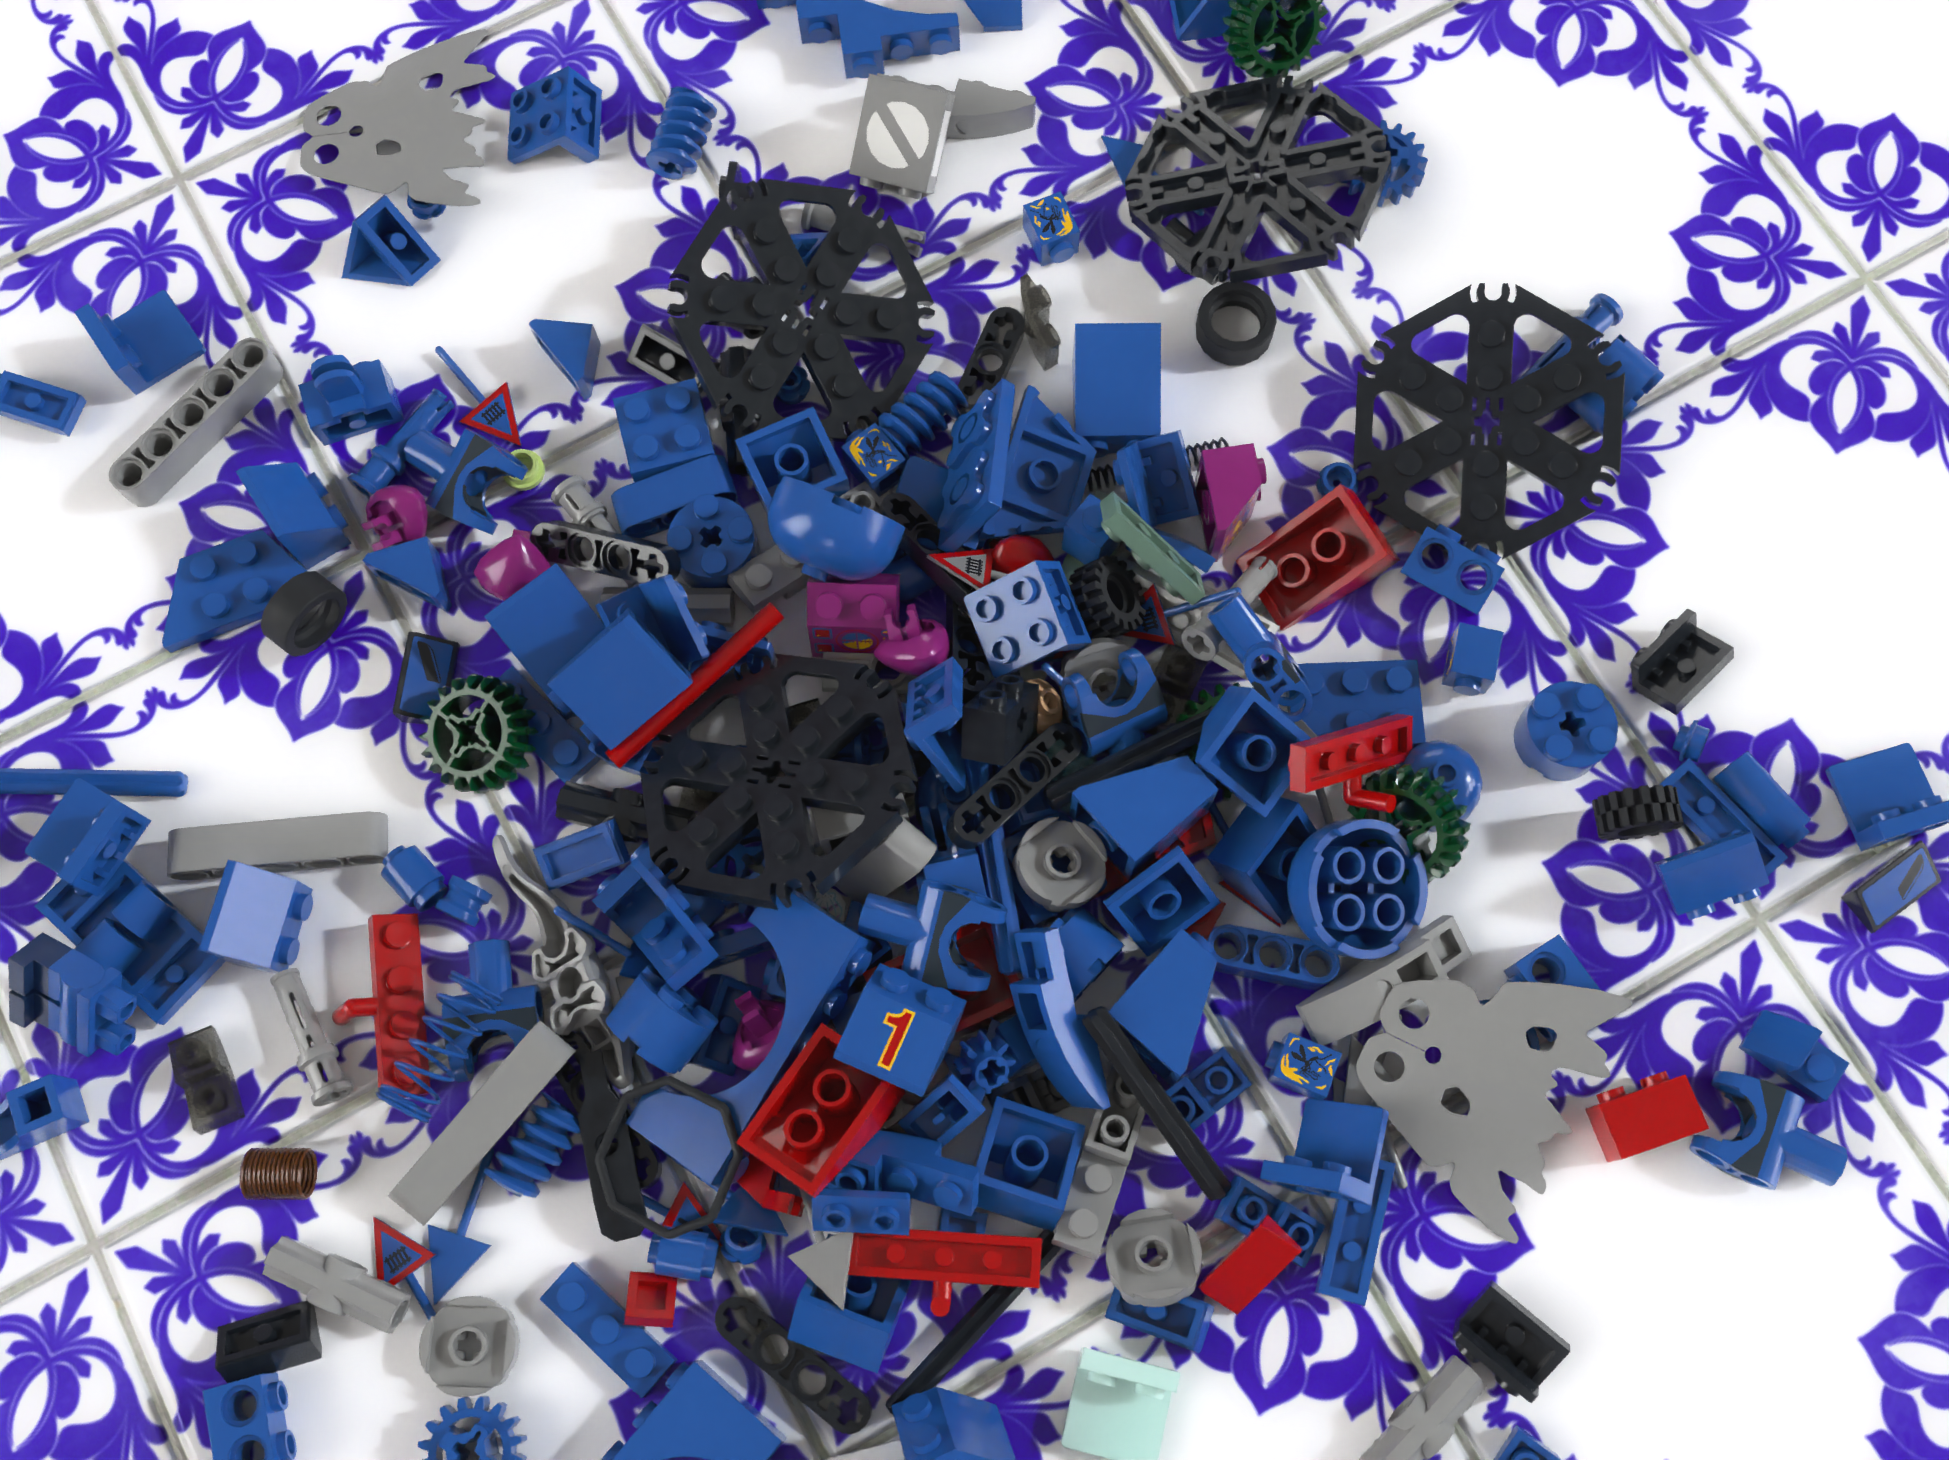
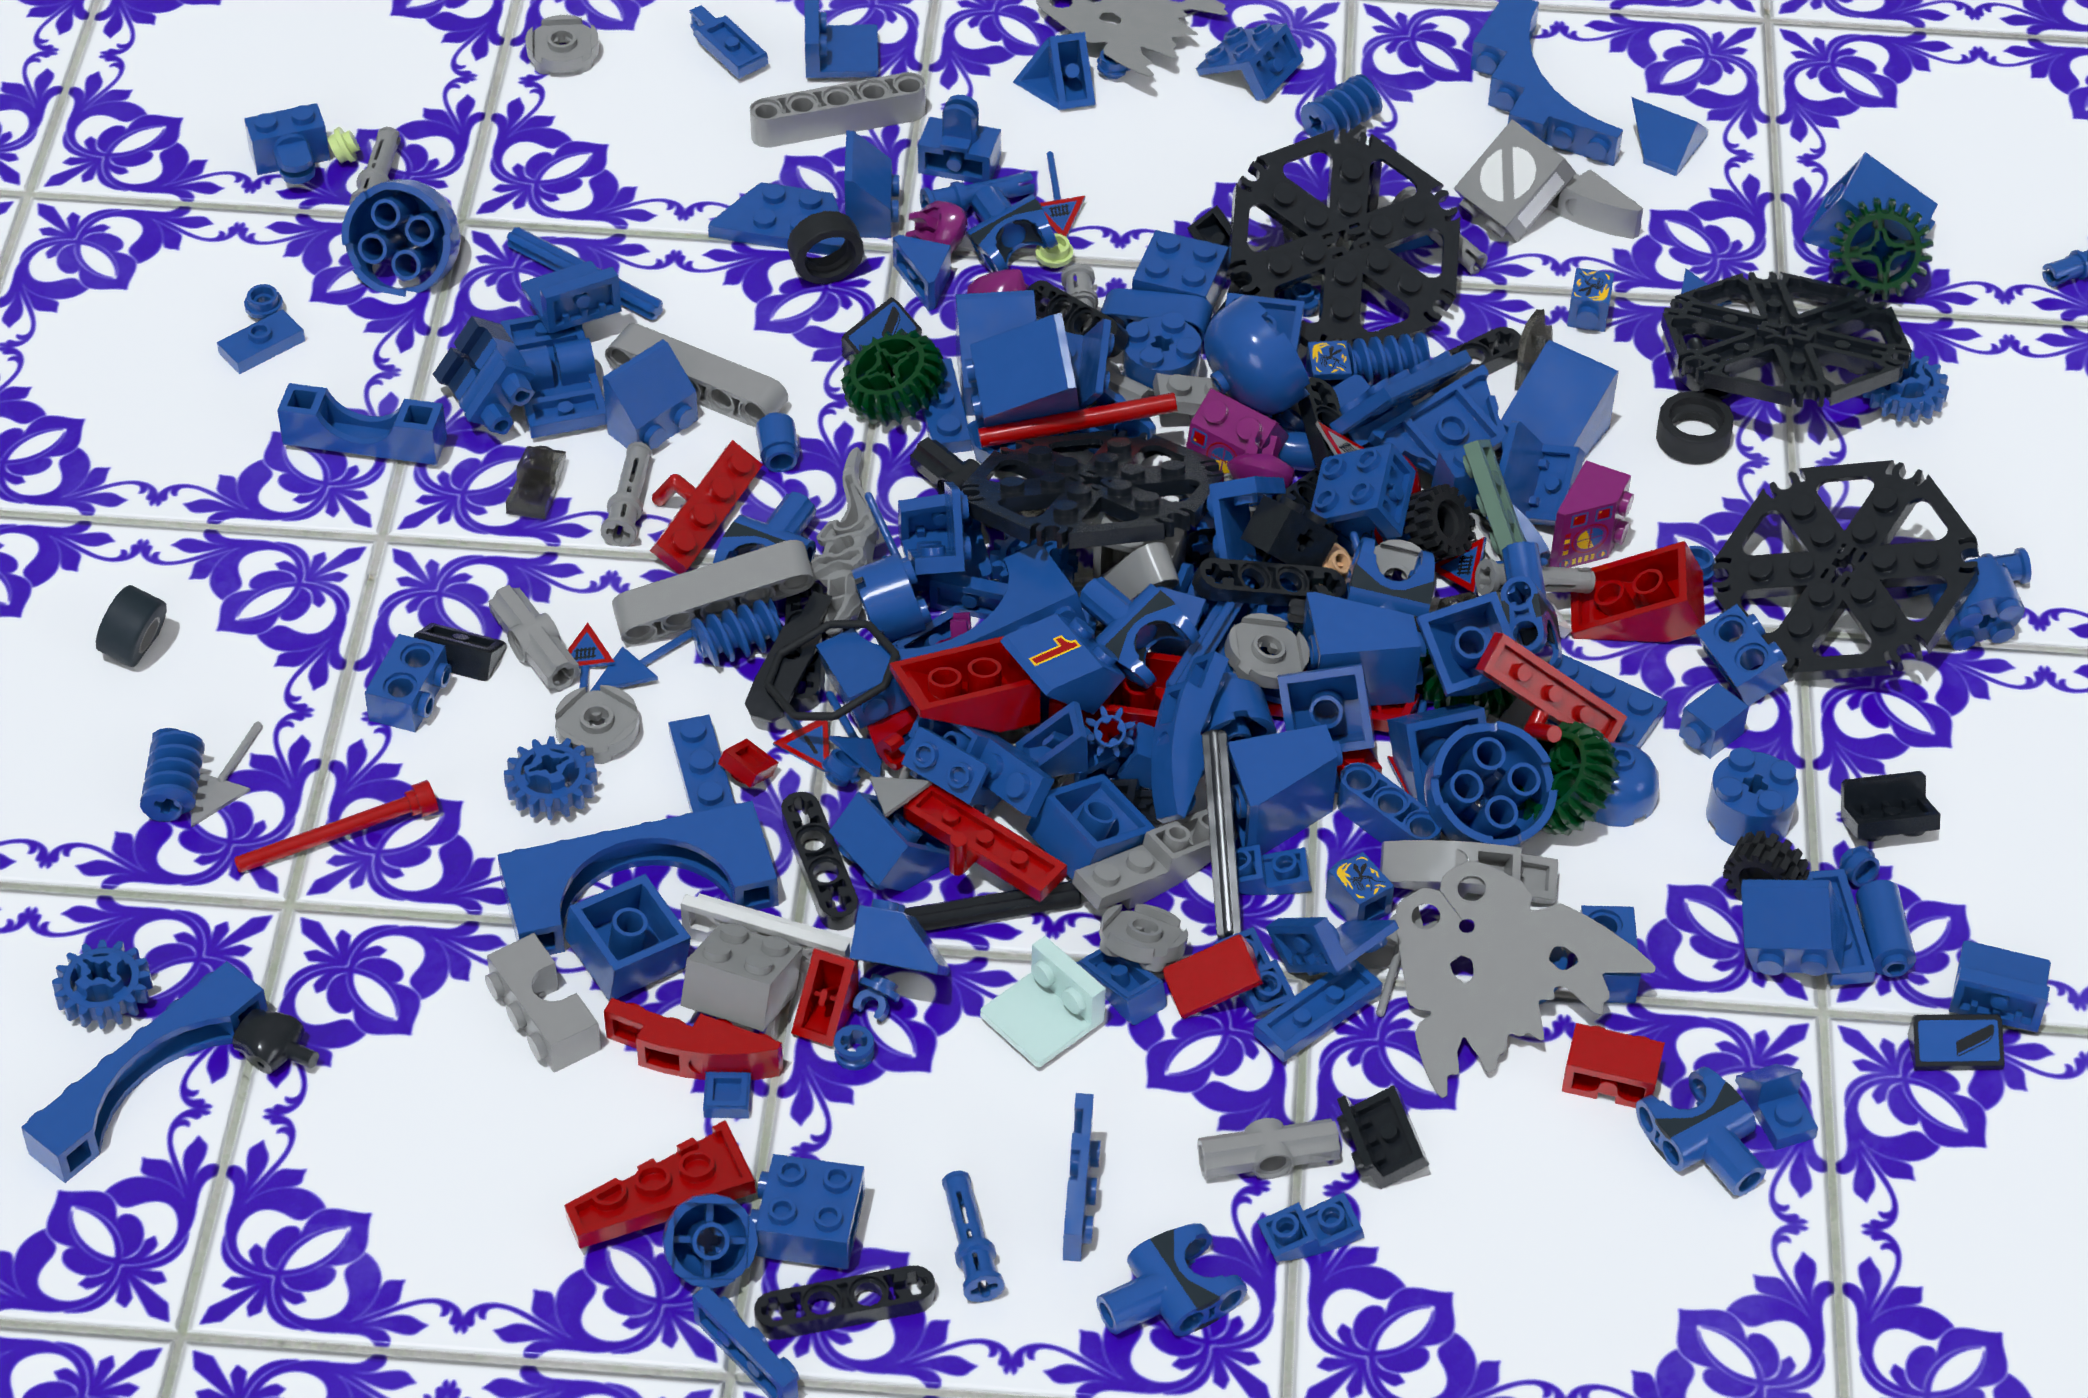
camera: 30 degrees right, 25 degrees down
(278, 1174) = (545, 554): reddish brown piece -> none
(404, 1105) = (771, 517): blue piece -> none
(463, 901) = (802, 471): blue wheel -> none
(572, 348) = (1151, 197): blue slope -> none
(581, 854) = (909, 482): blue tile -> none
(685, 1256) = (793, 749): blue brick -> none

